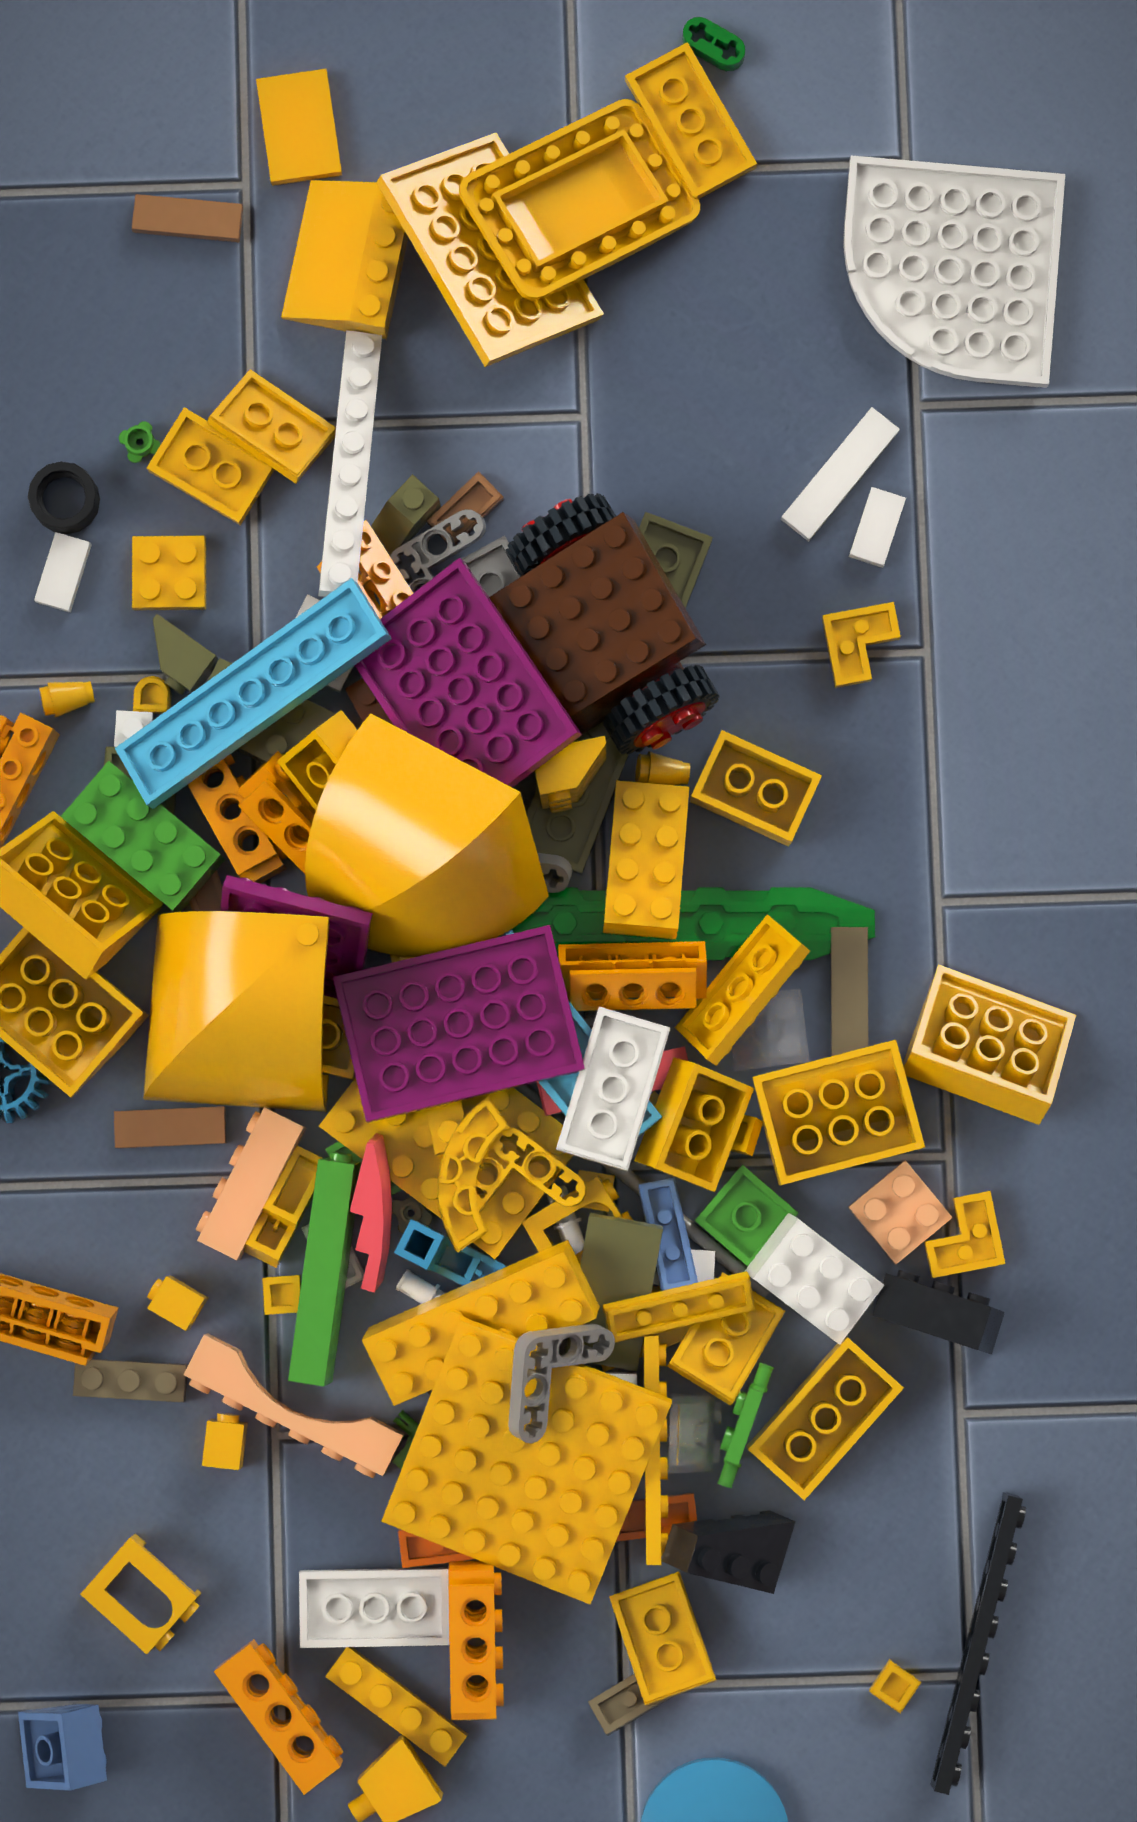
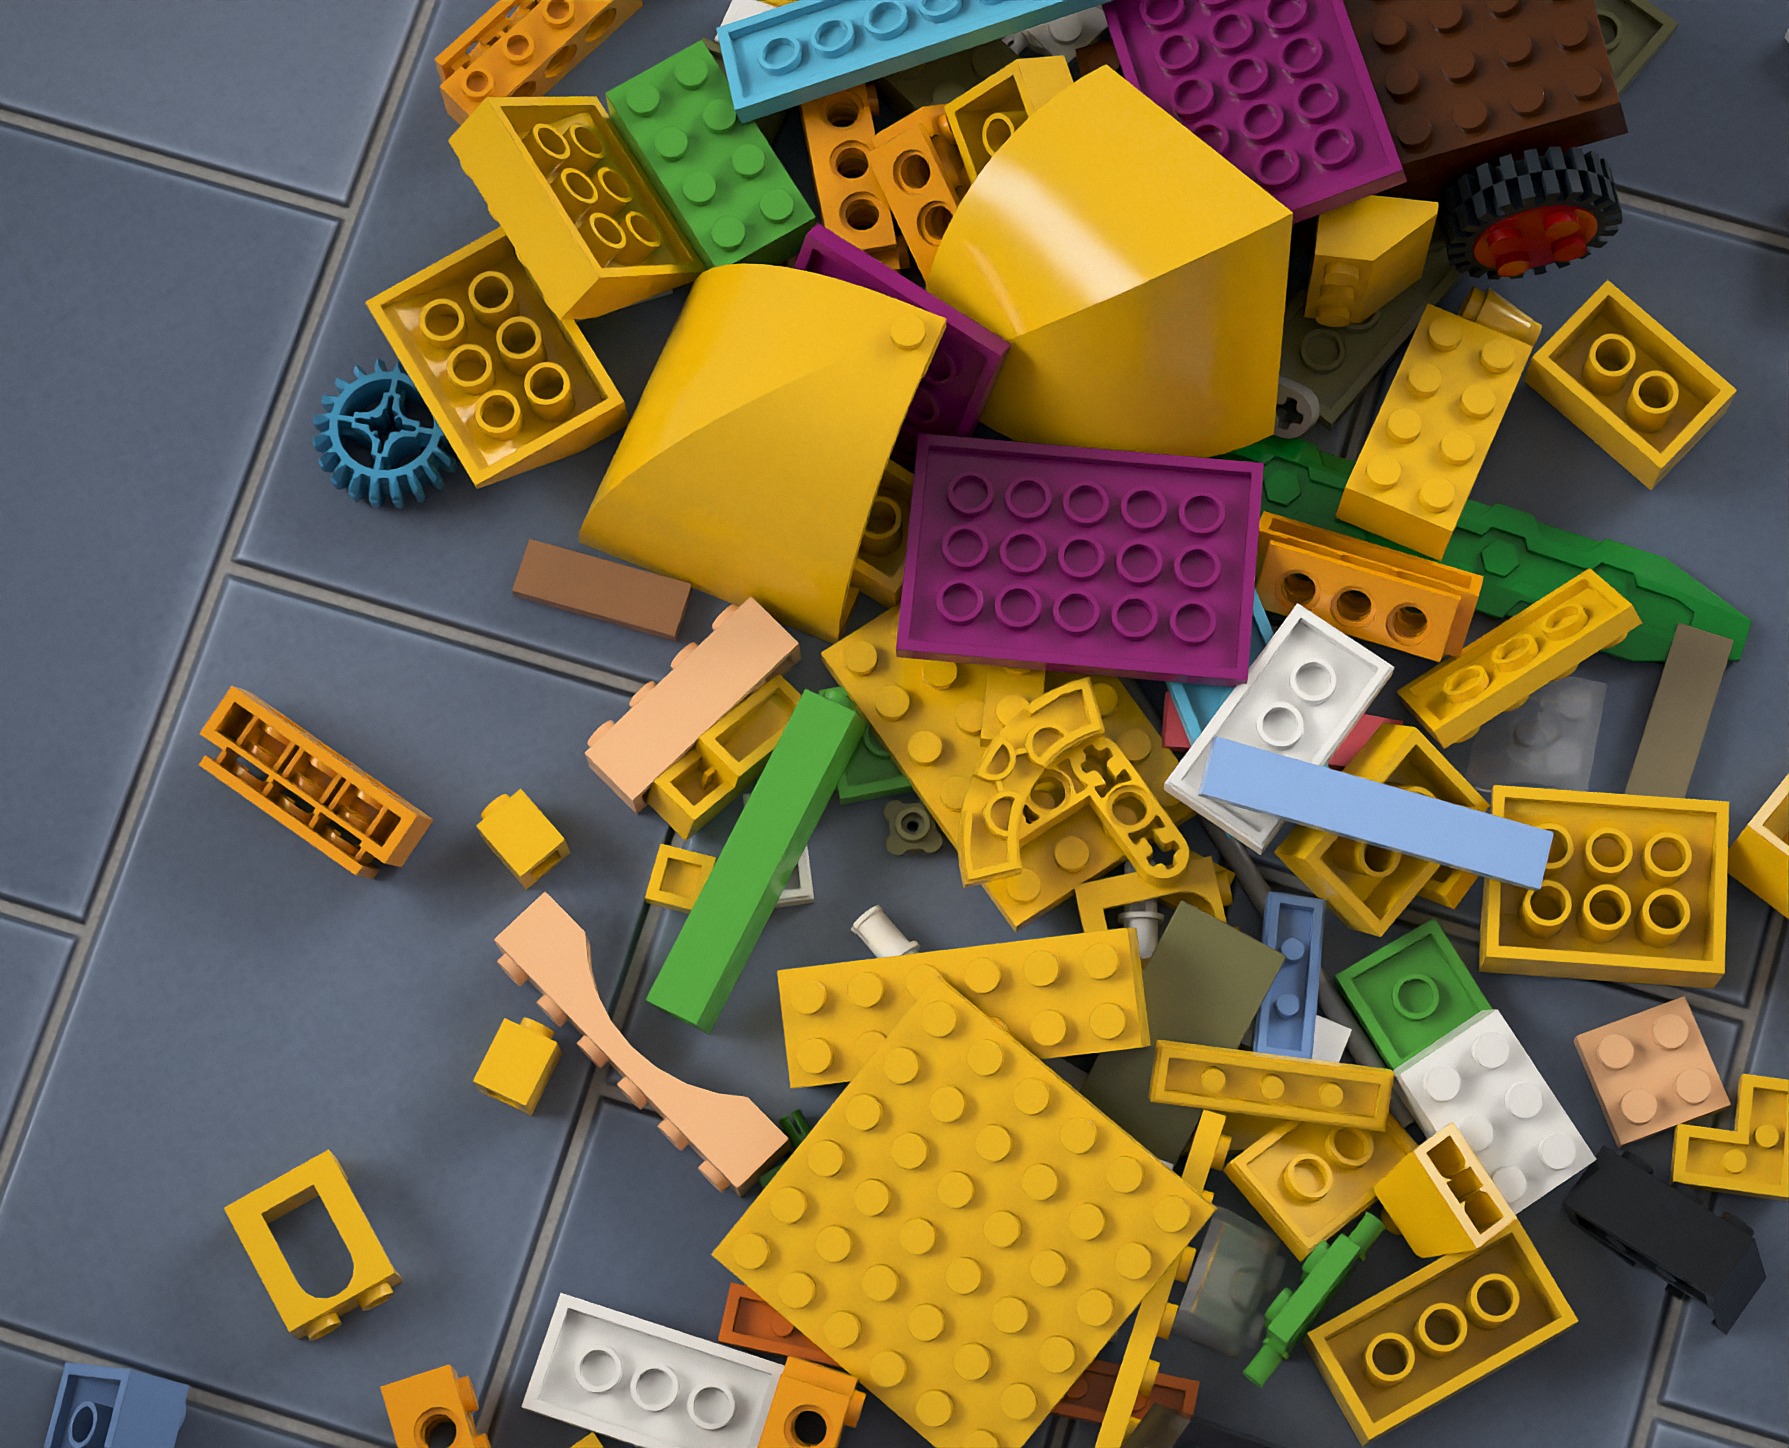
camera: 20 degrees right, 10 degrees down
(131, 1380) = (411, 930): dark tan plate -> none
(374, 1202) = (867, 778): coral slope -> none
(435, 1253) = (929, 884): dark azure arch -> none
(545, 1359) = (1046, 1071): light grey beam -> none
(688, 1127) = (1375, 813): none -> light blue tile
(802, 1342) = (1442, 1198): none -> yellow torso

